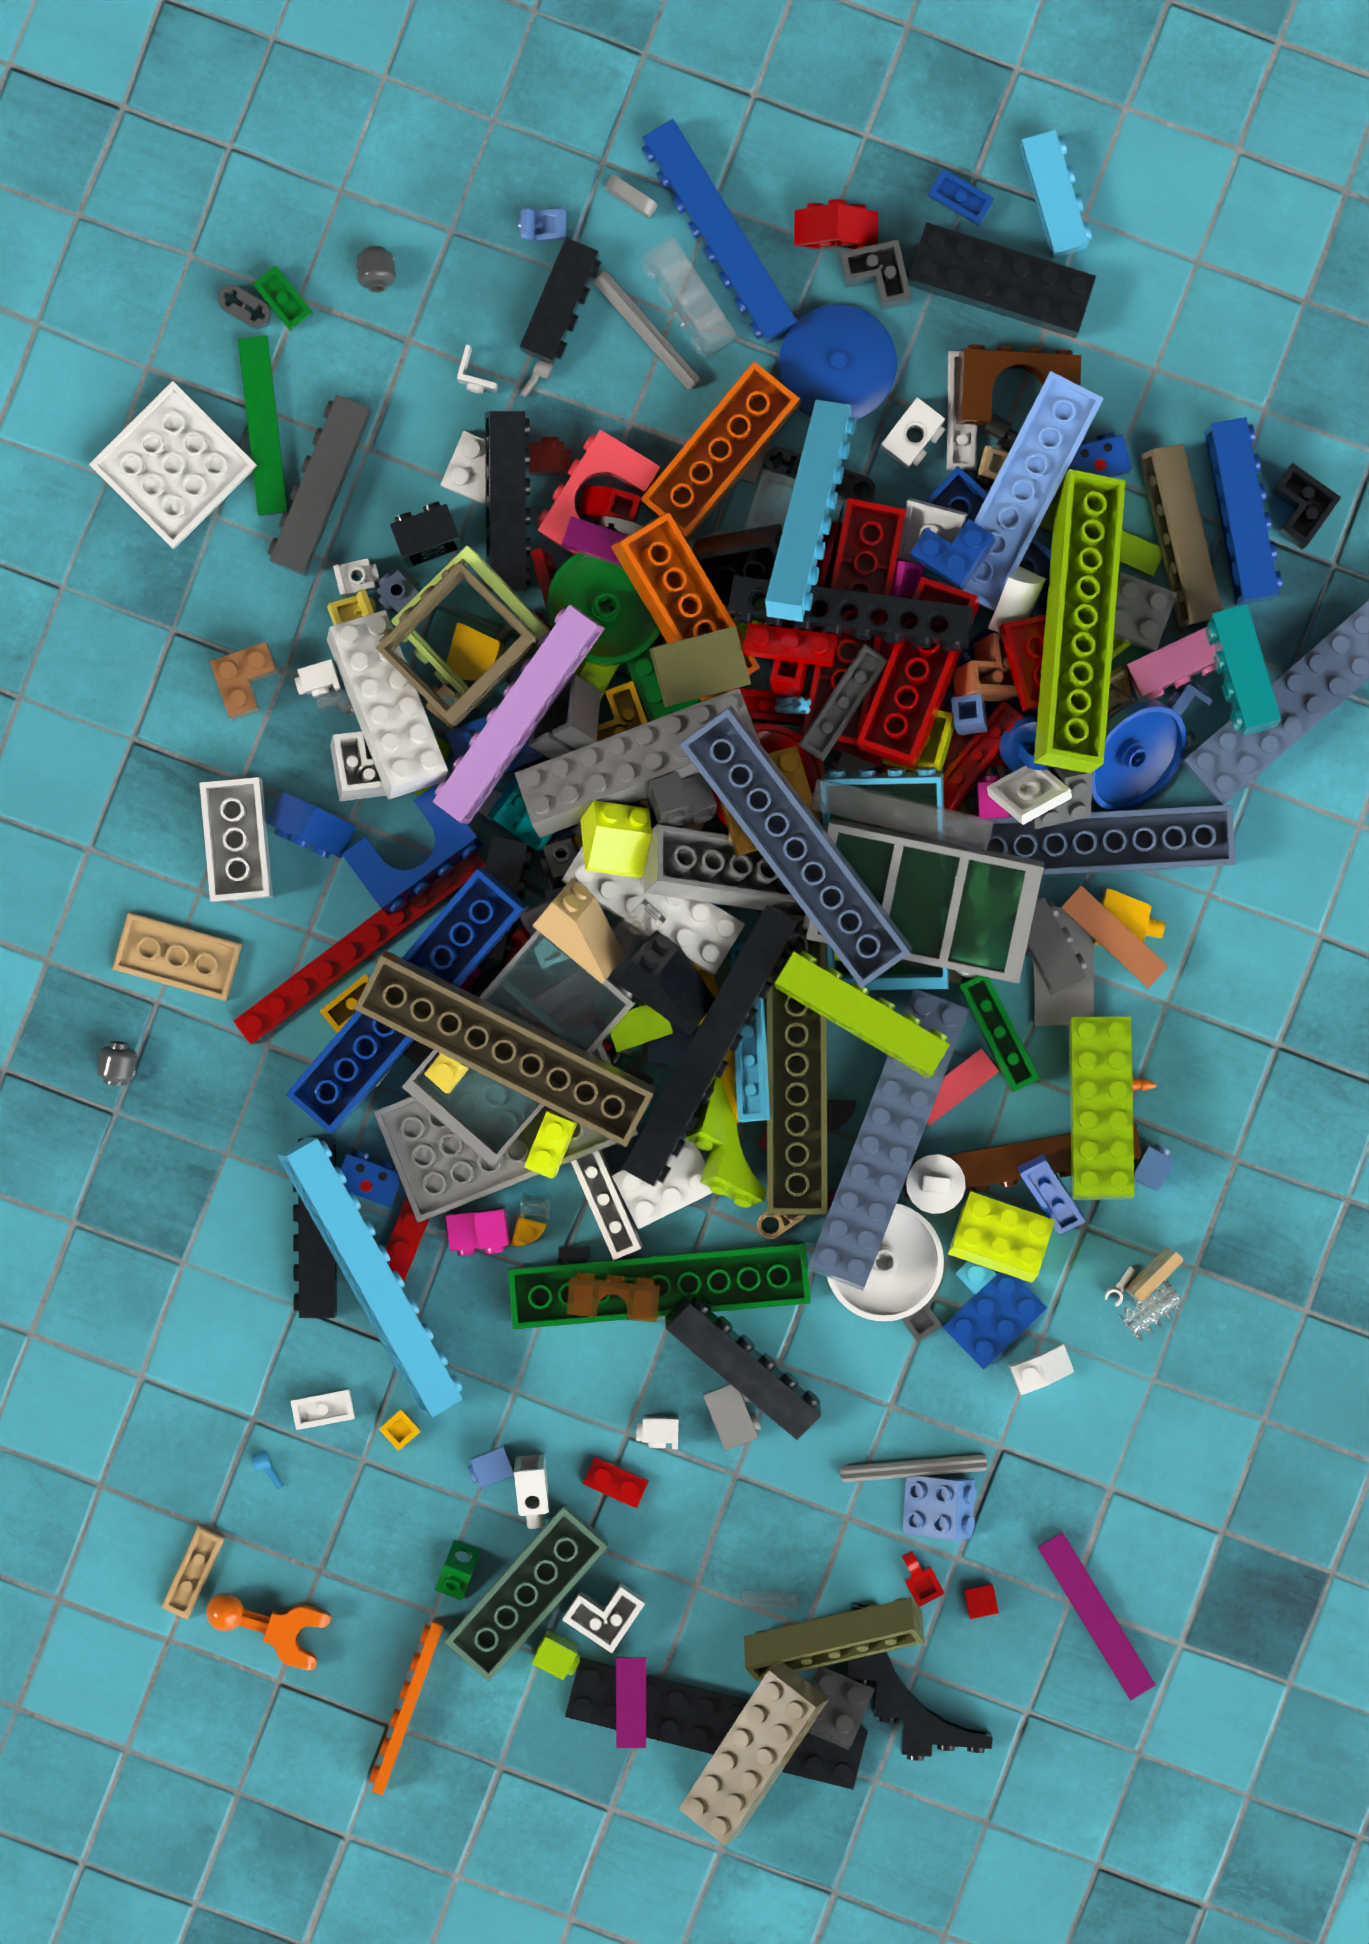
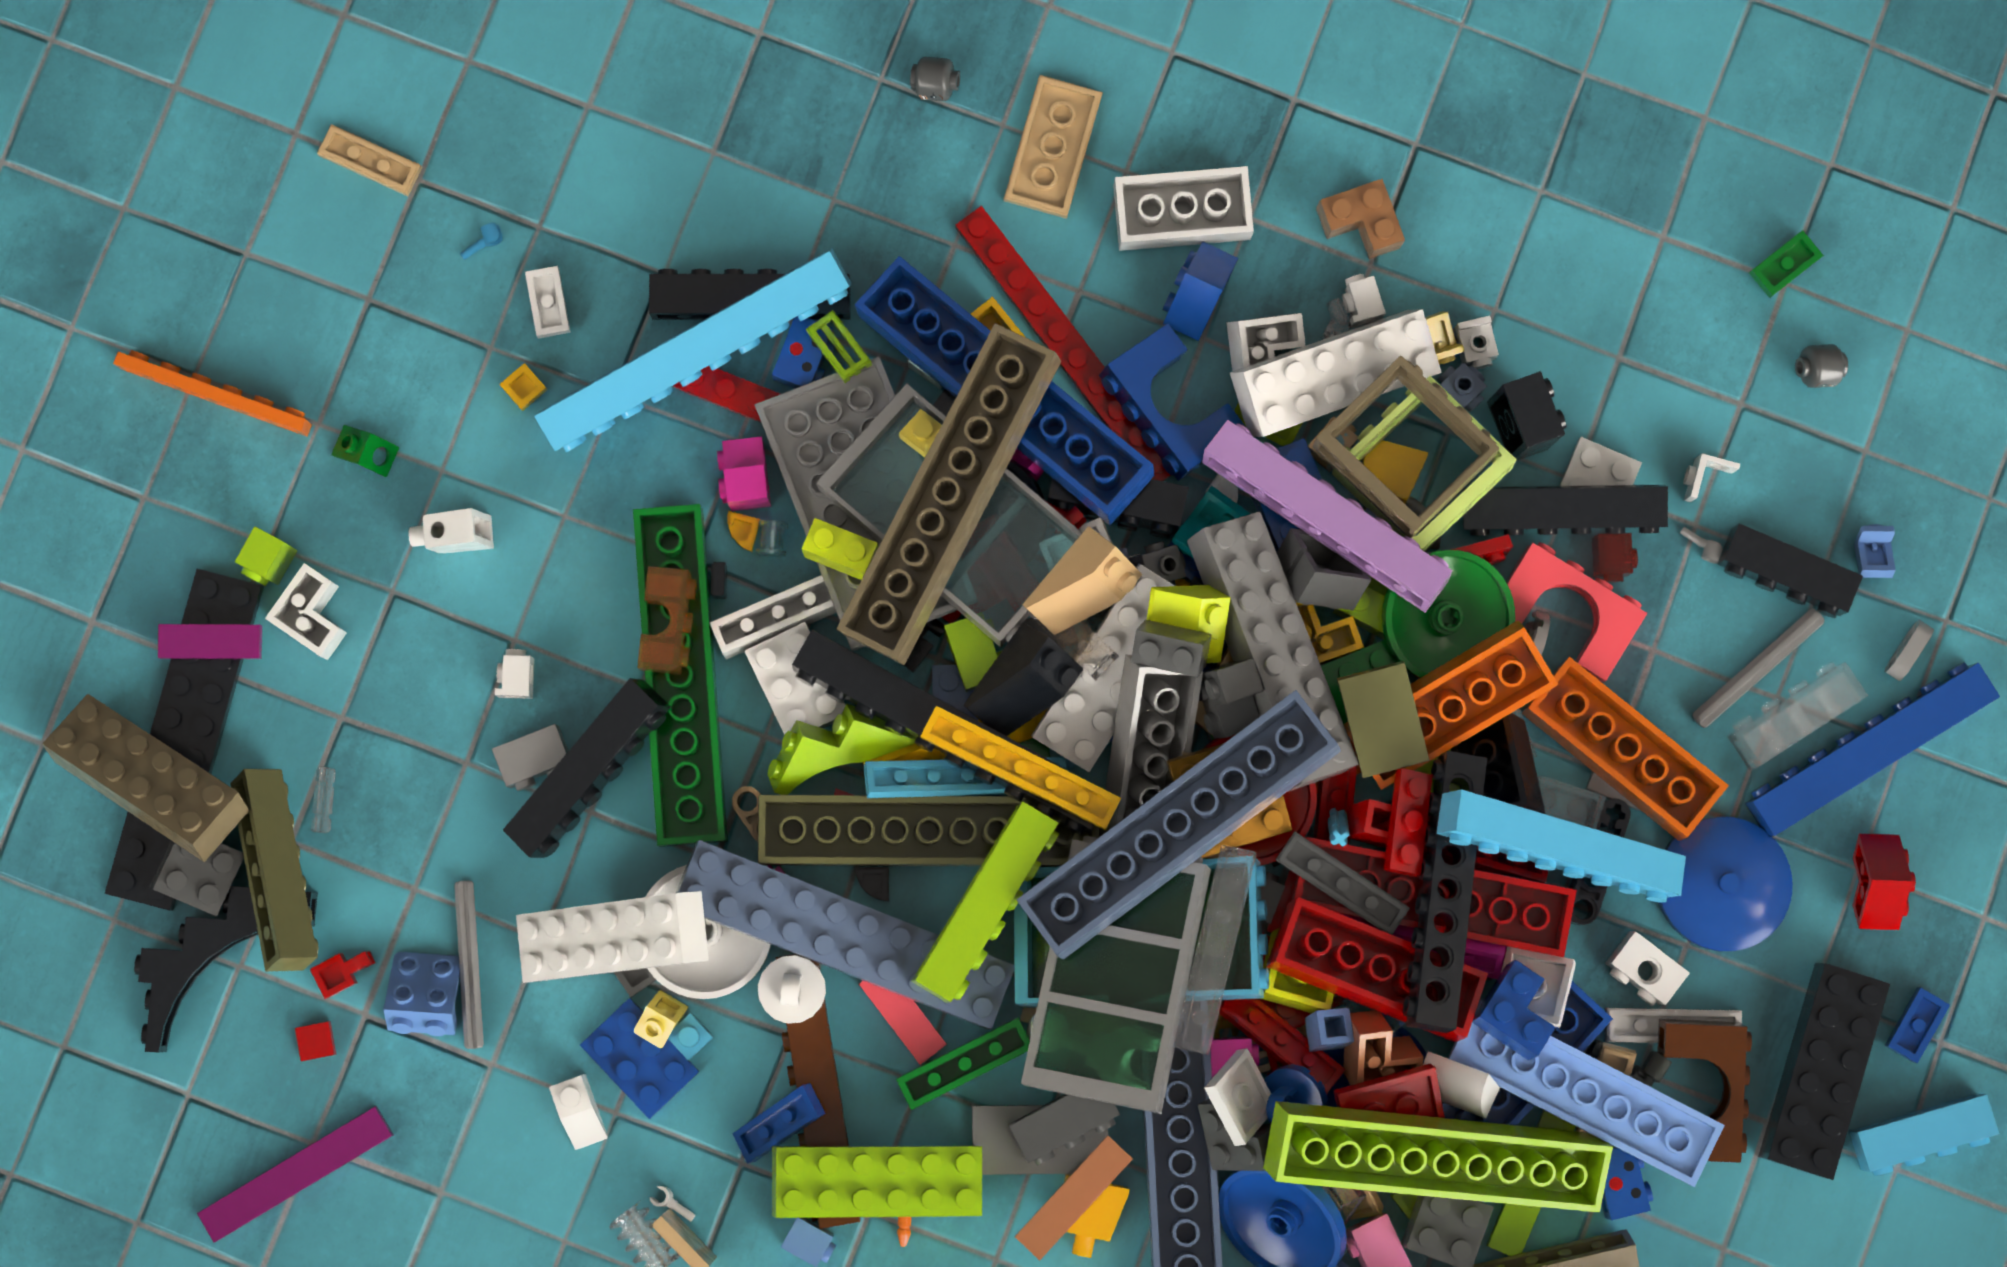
camera: 85 degrees right, 5 degrees down
(173, 465) = (1598, 143): white plate -> none
(248, 301) = (1781, 226): dark grey beam -> none
(263, 425) = (1643, 242): green tile -> none
(280, 1630) = (302, 252): orange piece -> none
(320, 485) = (1579, 304): dark grey brick -> none
(385, 1133) = (854, 368): none -> lime tile
(491, 1466) = (480, 487): medium blue brick -> none
(526, 1592) = (337, 525): sand green brick -> none
(591, 540) = (1523, 599): magenta tile -> none
(609, 502) = (1565, 624): red slope -> none
(615, 1482) = (460, 627): red plate -> none
(640, 852) = (1171, 648): none -> dark grey brick
(744, 984) = (1020, 767): none -> yellow plate
(880, 265) = (1839, 929): dark grey brick -> none
(892, 1340) = (612, 937): none -> white brick
(960, 1299) = (660, 1018): none -> light yellow bracket
(1001, 1237) = (730, 1065): neon yellow brick -> none

